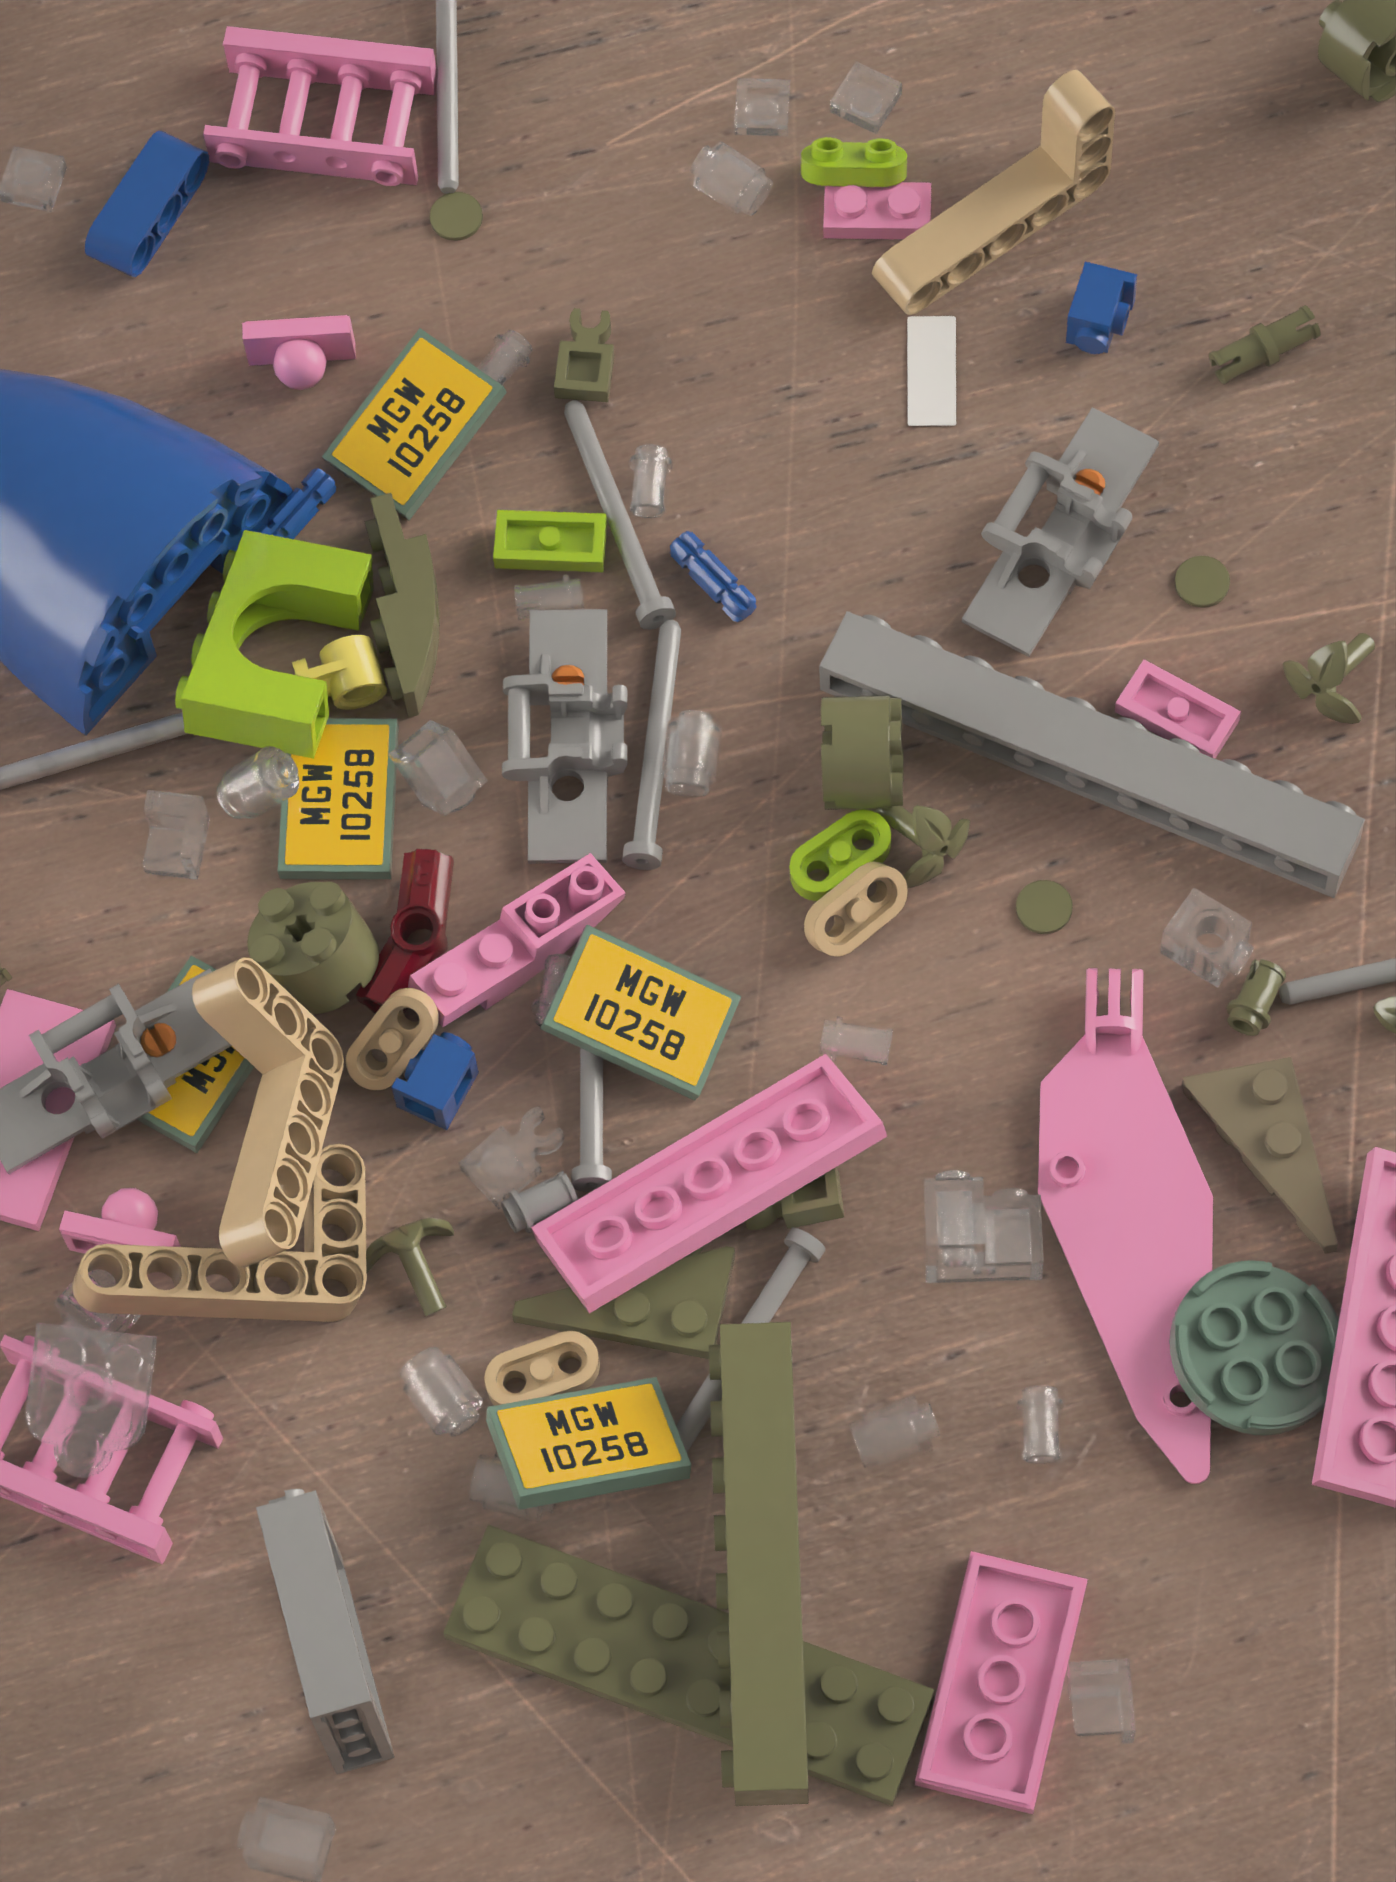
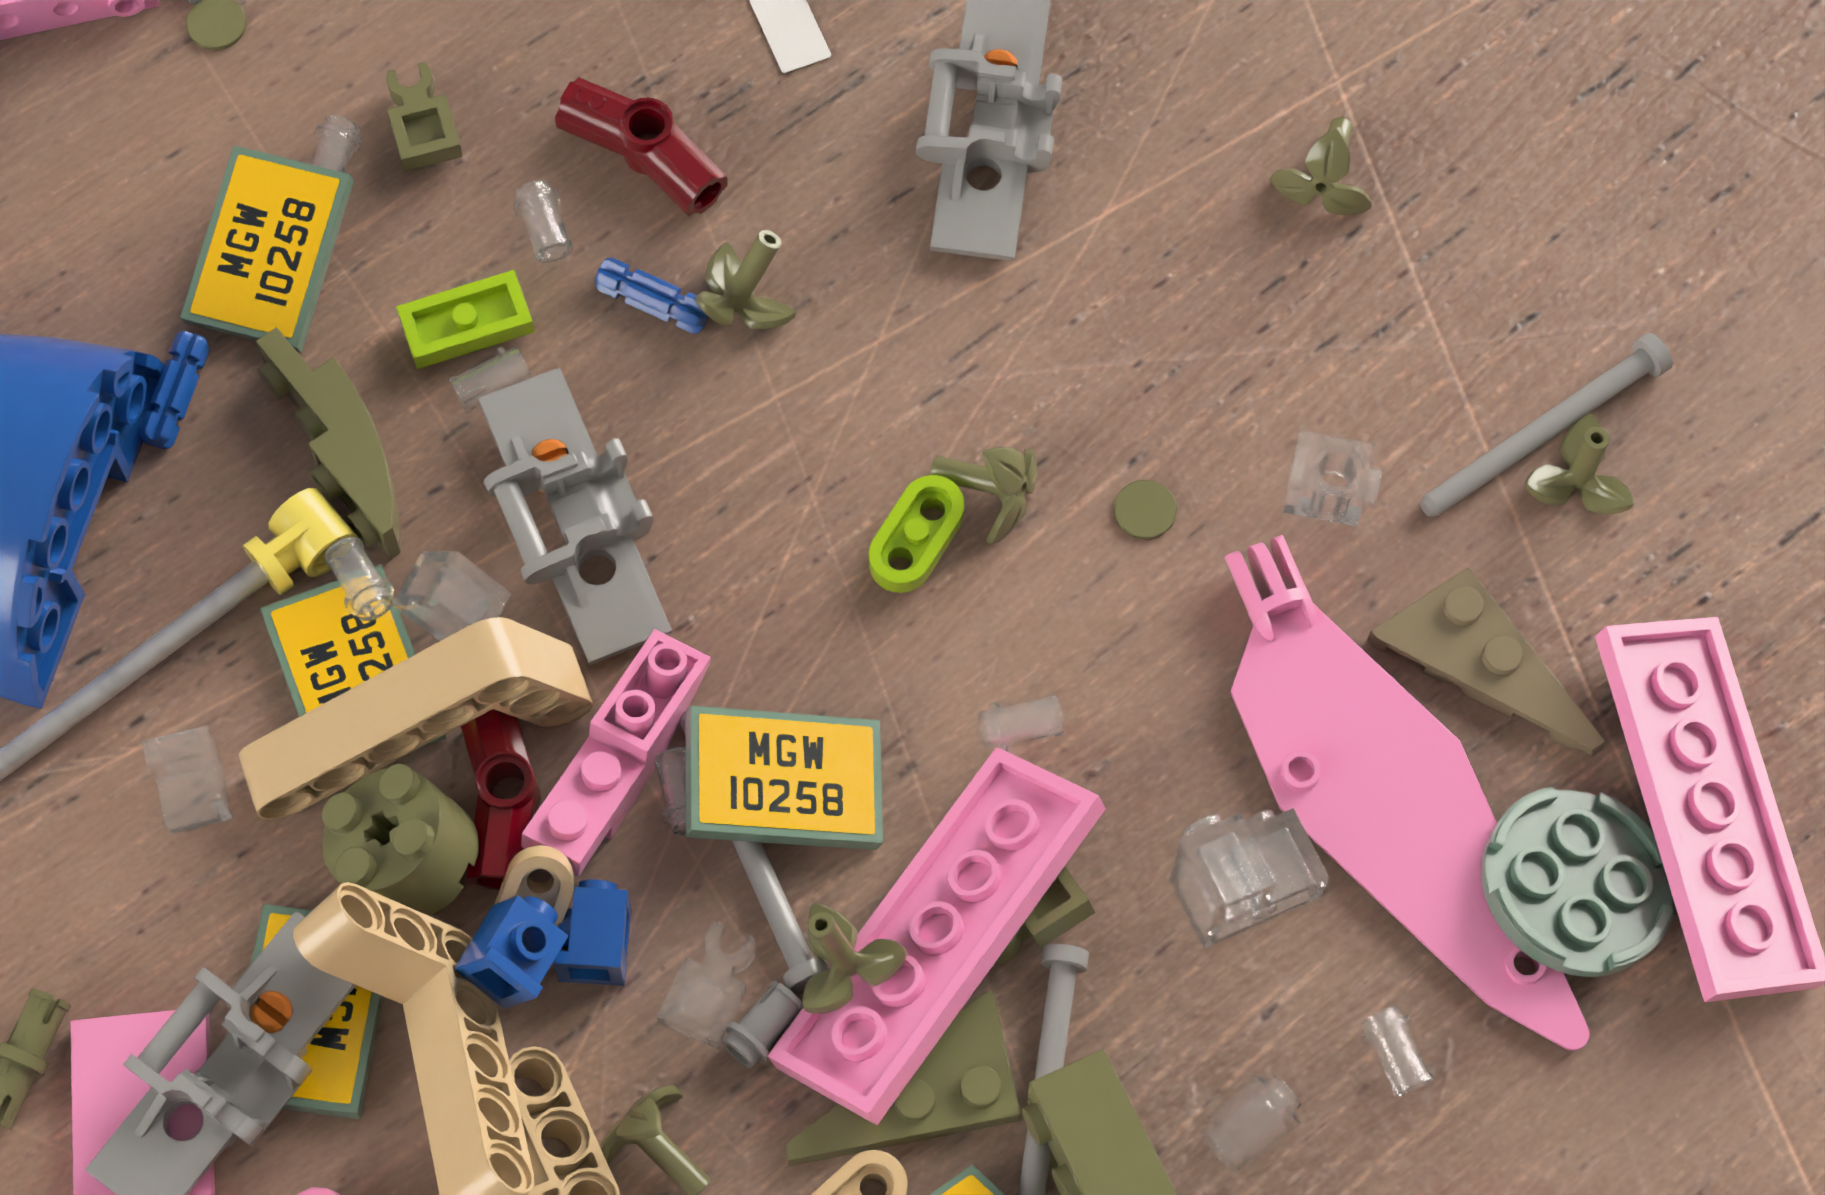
camera: 30 degrees left, 0 degrees up
(258, 783) = (261, 689): clear brick -> none
(266, 583) = (177, 471): lime arch -> none
(299, 346) = (106, 211): bright pink tile -> none
(346, 1067) = (498, 956): none -> blue brick
(372, 735) = (365, 590): none -> clear pin
(372, 839) = (412, 704): none -> tan beam
(622, 1156) = (834, 941): none -> olive plant
(642, 851) = (707, 606): light grey bar -> none
(653, 607) = (606, 350): light grey bar -> none
(691, 754) = (713, 486): clear brick -> none
(774, 465) = (668, 160): none -> dark red piece
(784, 586) = (736, 282): none -> olive plant
(853, 912) = (955, 590): tan plate -> none
(862, 752) = (896, 417): olive brick -> none
(1095, 754) = (1125, 334): light grey brick -> none
(1177, 709) = (1191, 261): bright pink plate -> none
(1202, 581) = (1150, 124): olive piece -> none
(1250, 1010) = (1405, 533): olive pin -> none

